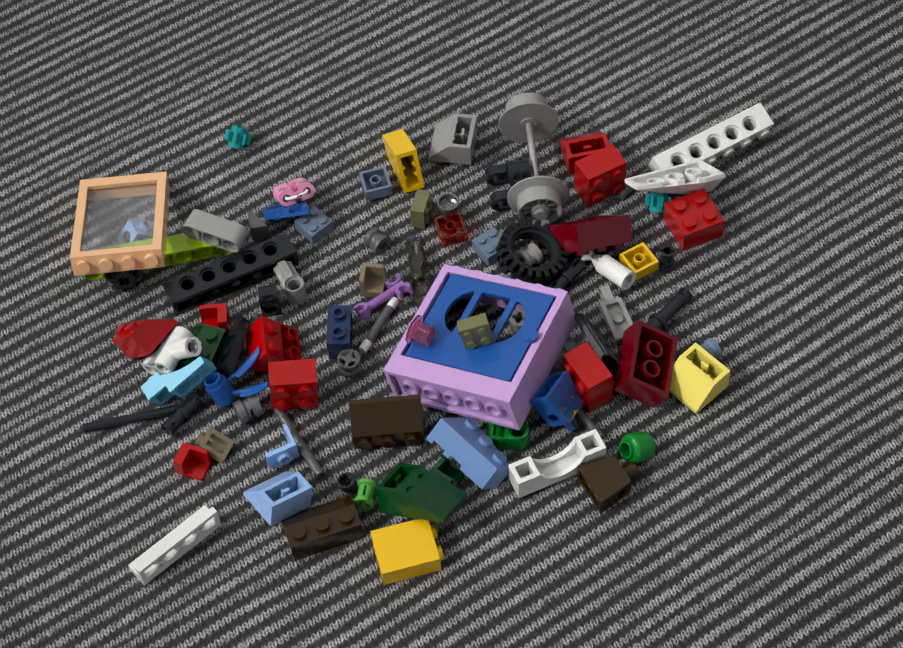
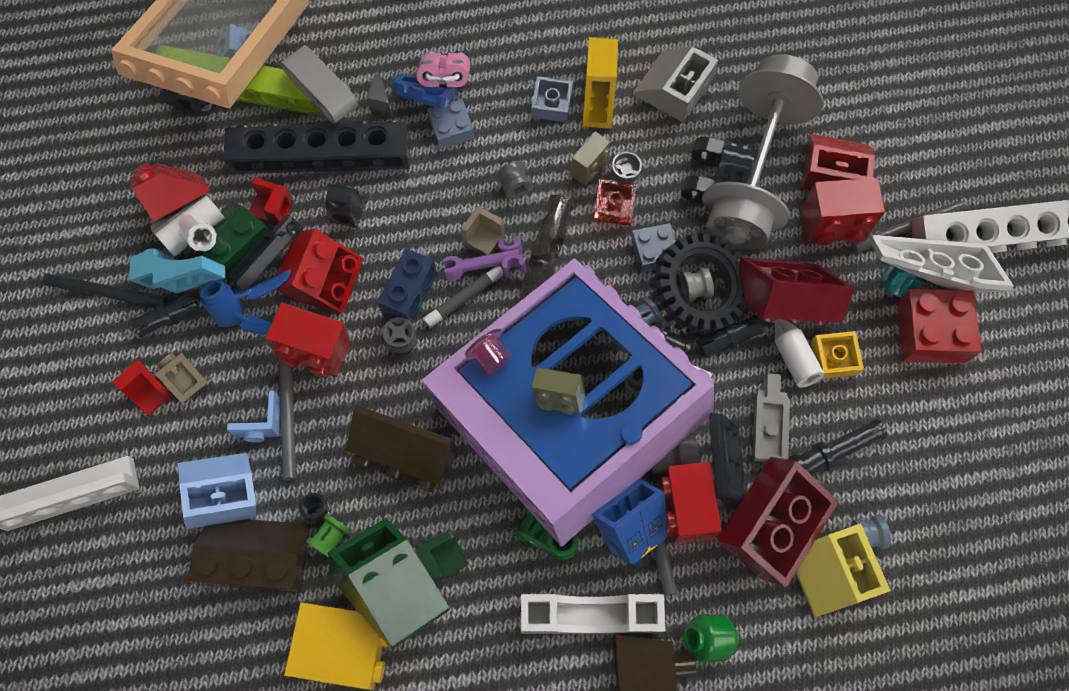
camera: 20 degrees right, 15 degrees up
(247, 408) = (244, 344): flat silver wheel -> none
(291, 282) = (384, 190): light grey piece -> none
(472, 449) = (488, 543): medium blue wedge -> none
(667, 260) = (877, 368): black pin -> none

